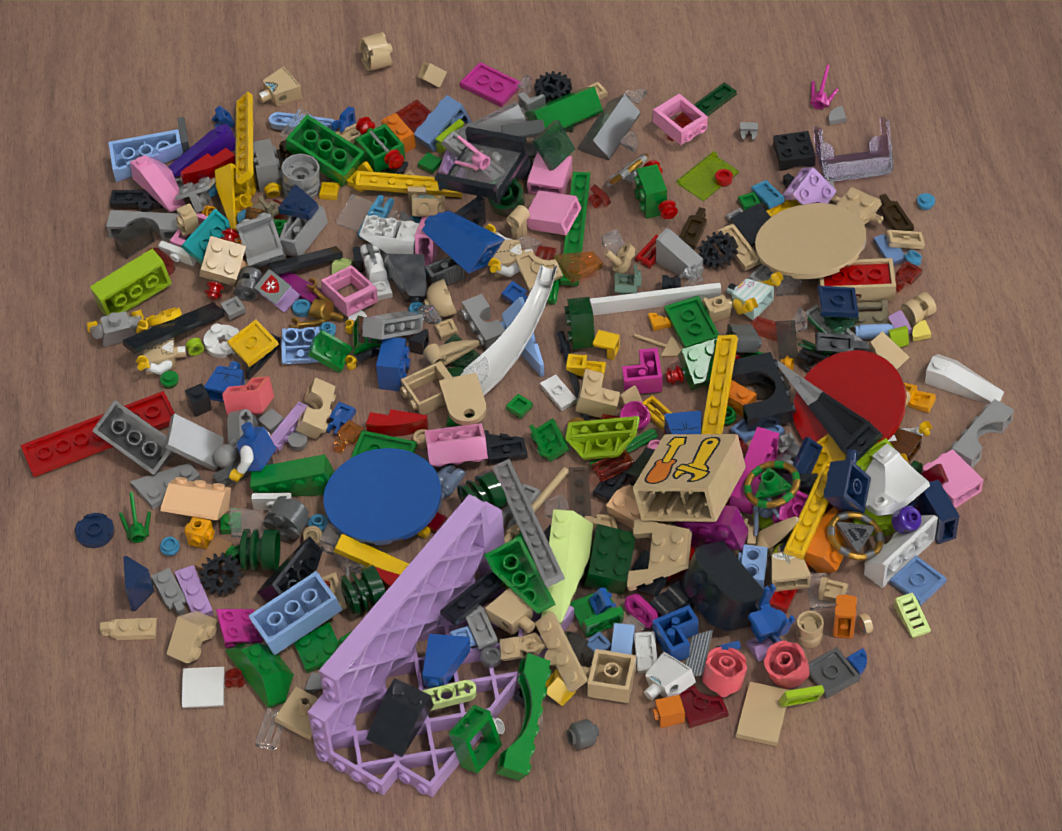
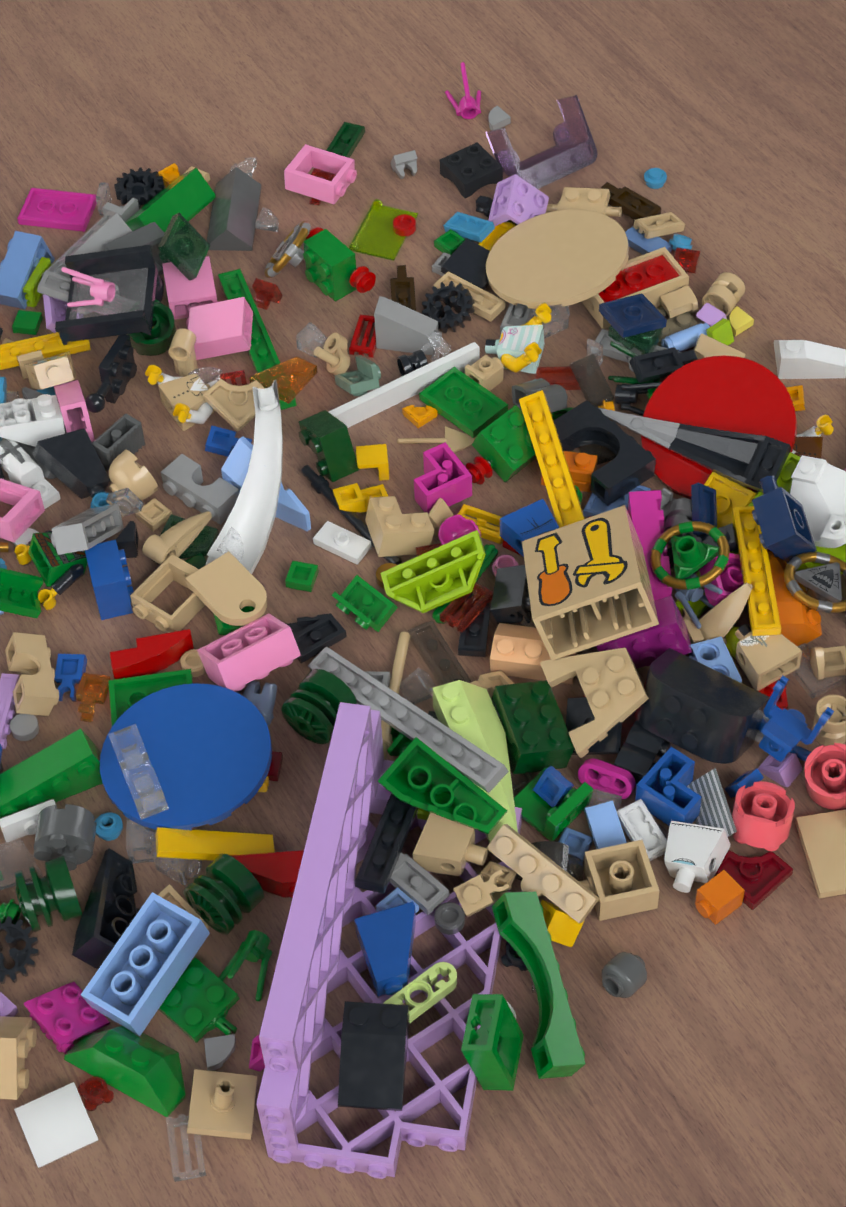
camera: 25 degrees left, 0 degrees up
(314, 532) = (109, 840): tan plate -> none
(344, 501) = (138, 771): none -> clear arch
(463, 240) = (127, 393): blue slope -> none
(579, 82) = (169, 174): none -> light orange tile
(882, 302) = (679, 302): none -> tan tile

